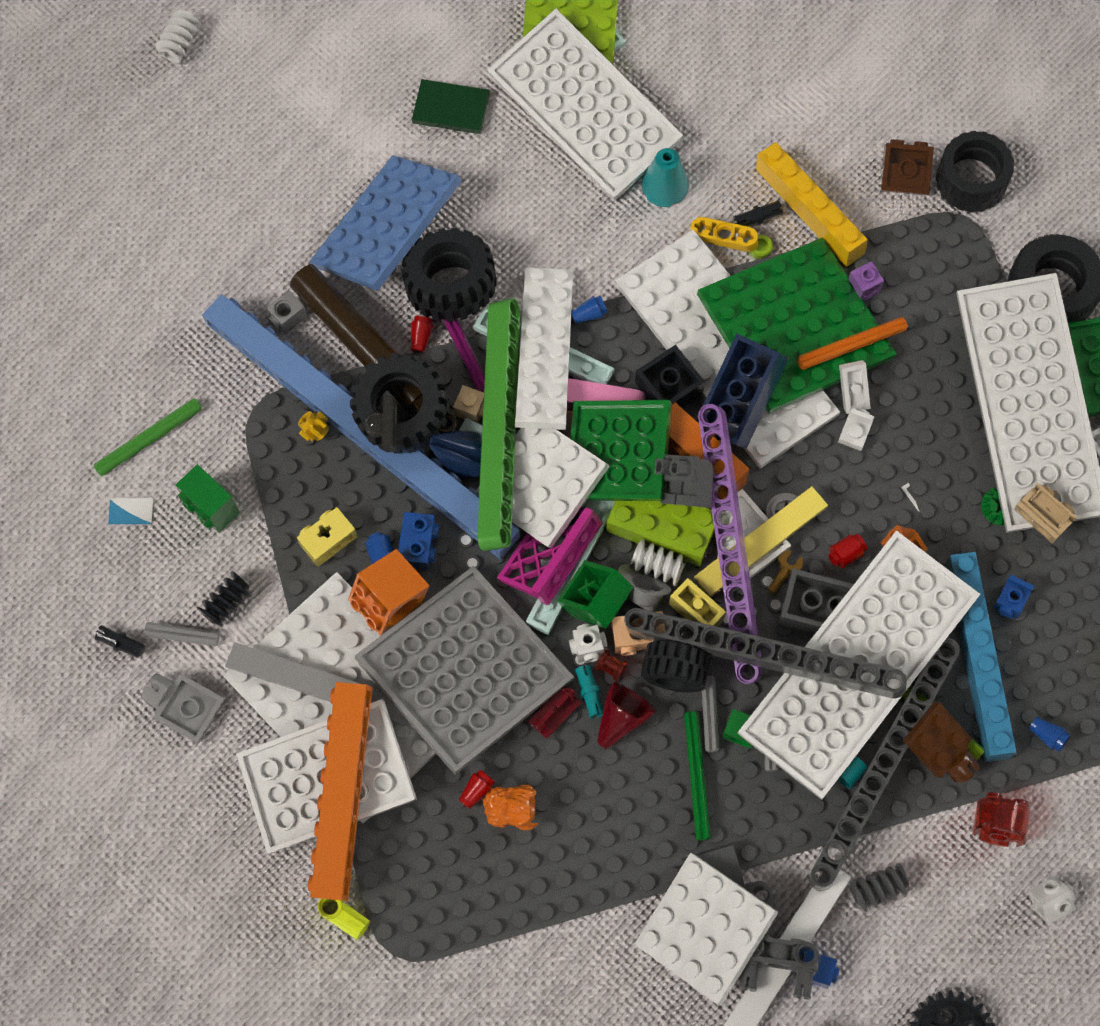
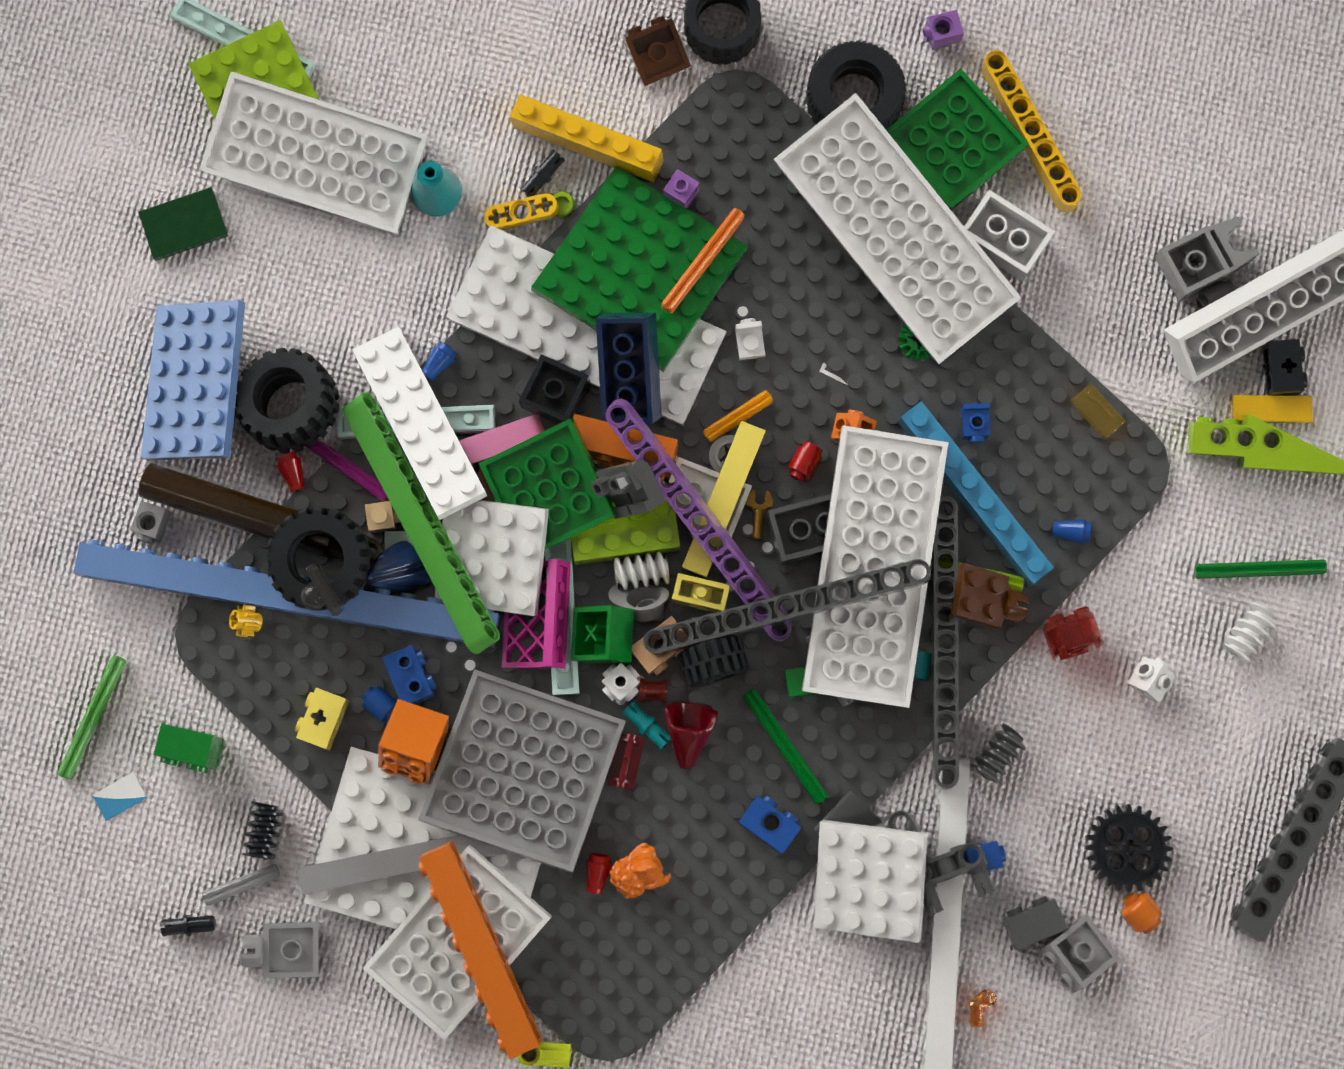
camera: 30 degrees left, 10 degrees up
(646, 848) = (777, 839): none -> blue brick
(710, 717) = (767, 685): light grey axle -> none
(820, 484) = (736, 416): none -> light orange axle
(854, 386) = (727, 300): white plate -> none
(1045, 512) = (965, 330): tan hinge -> none

